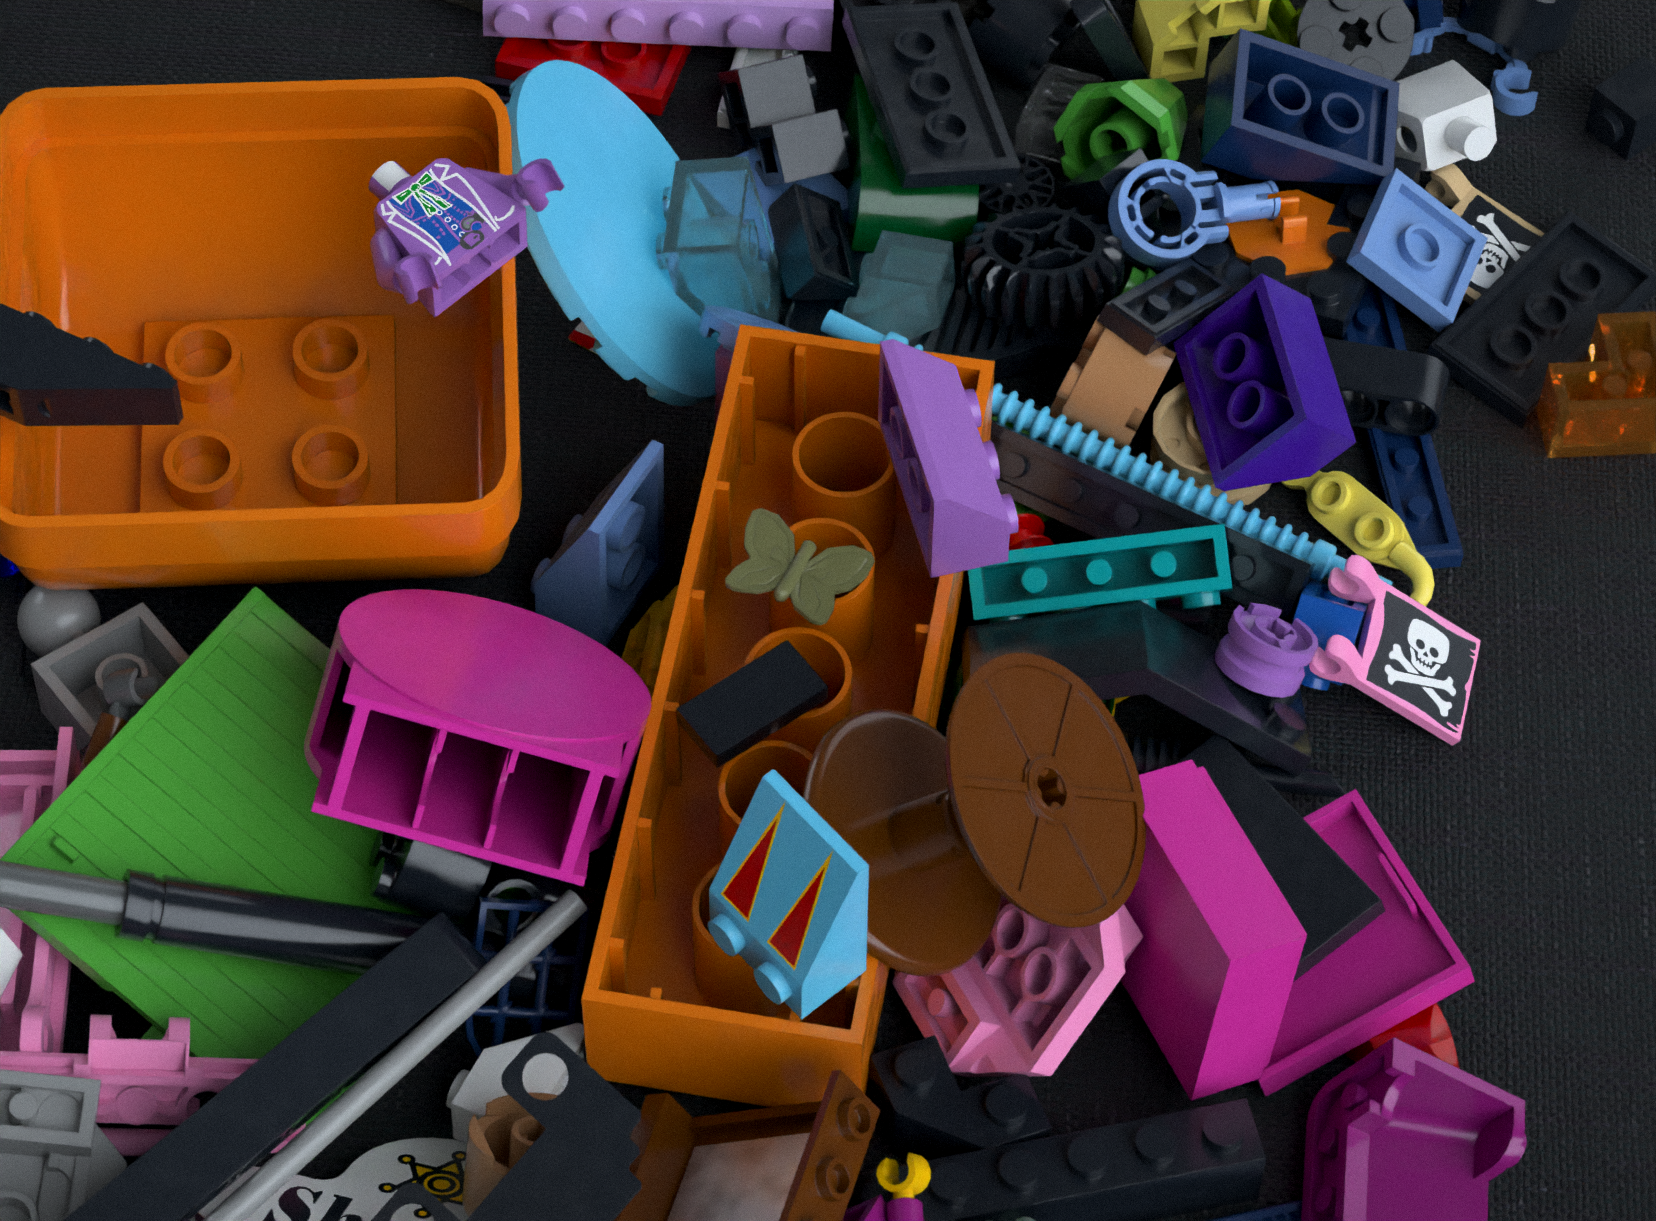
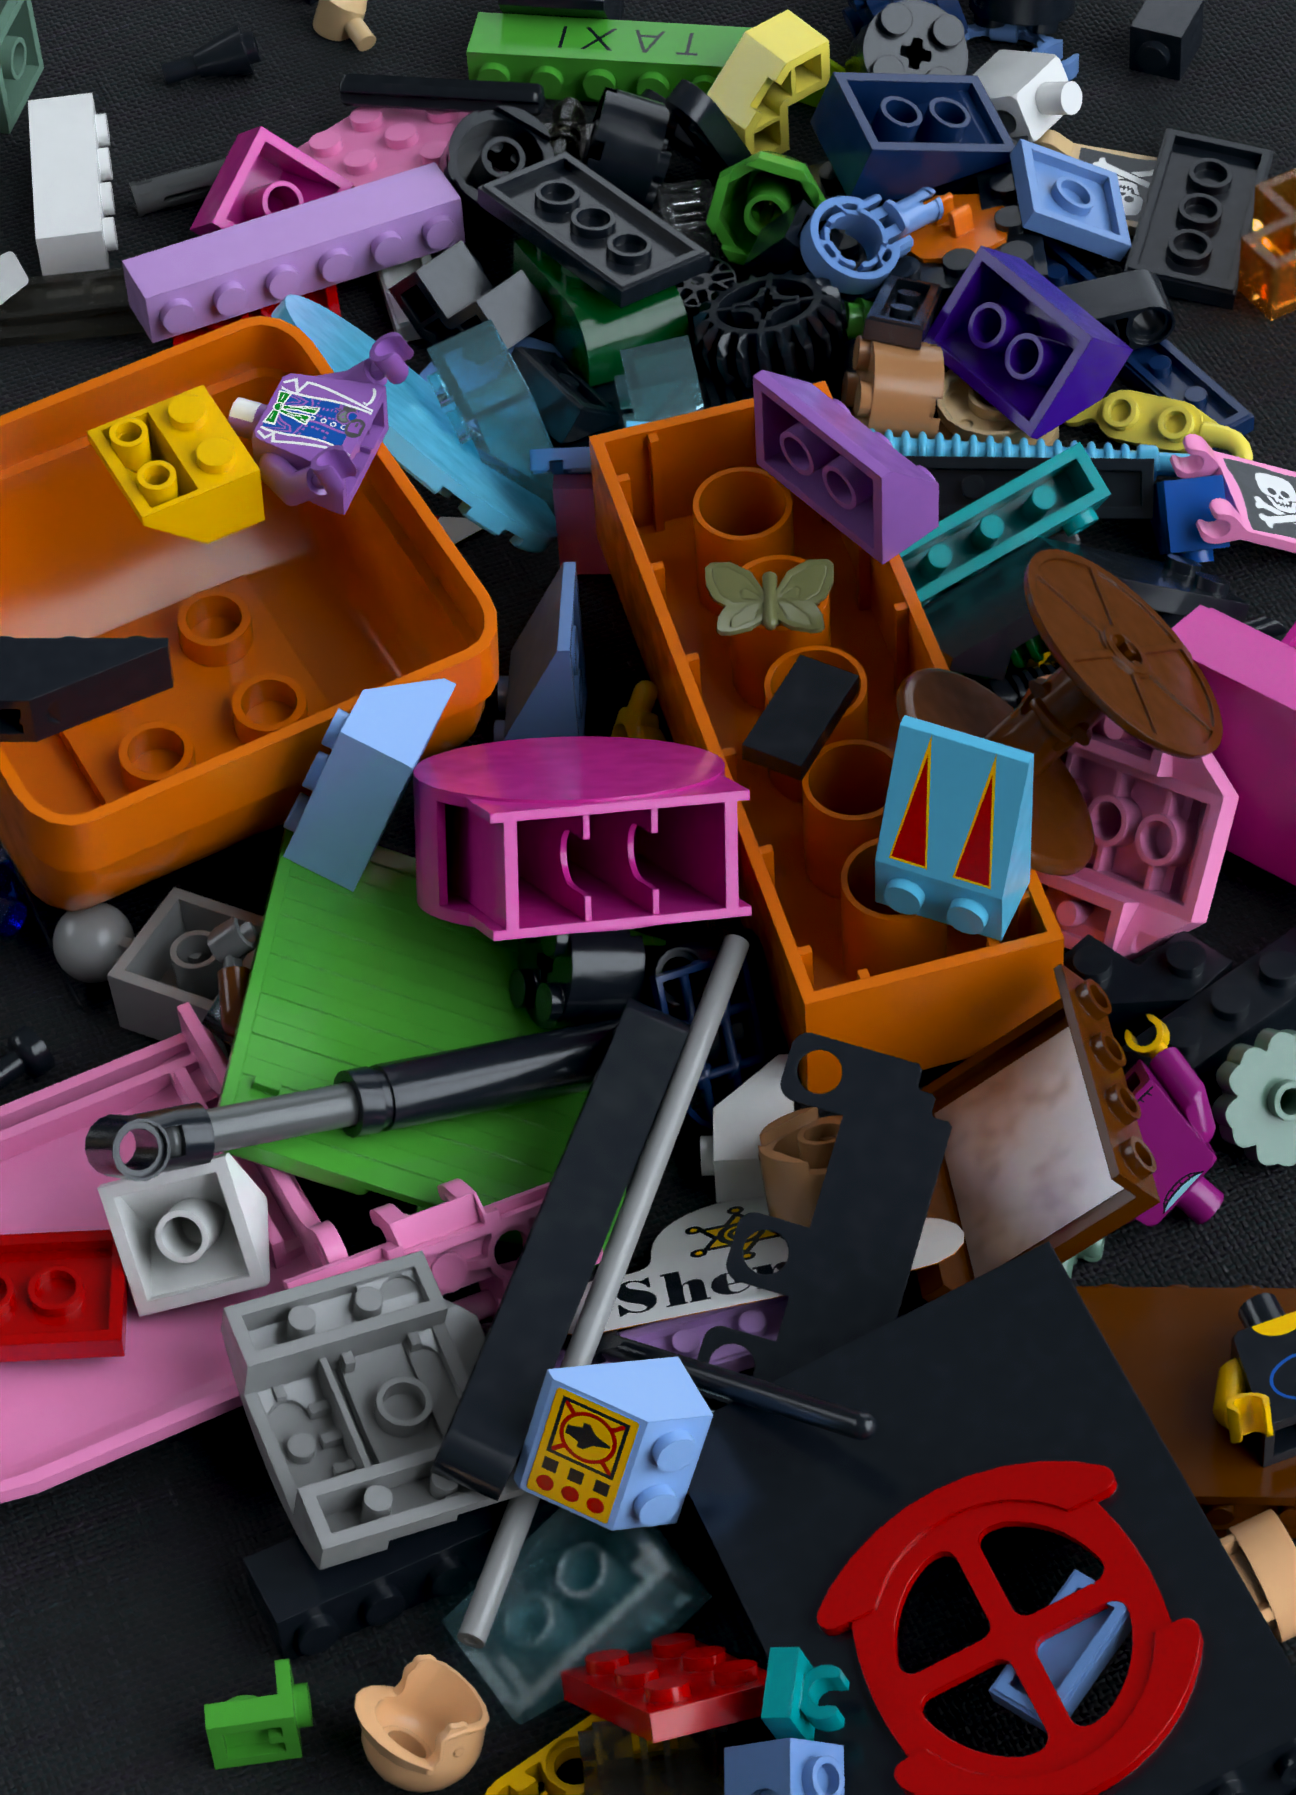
camera: 20 degrees left, 5 degrees down
(293, 212) = (182, 467): none -> yellow slope
(309, 579) = (362, 777): none -> light blue slope
(1266, 651) = (1163, 535): medium lavender wheel -> none

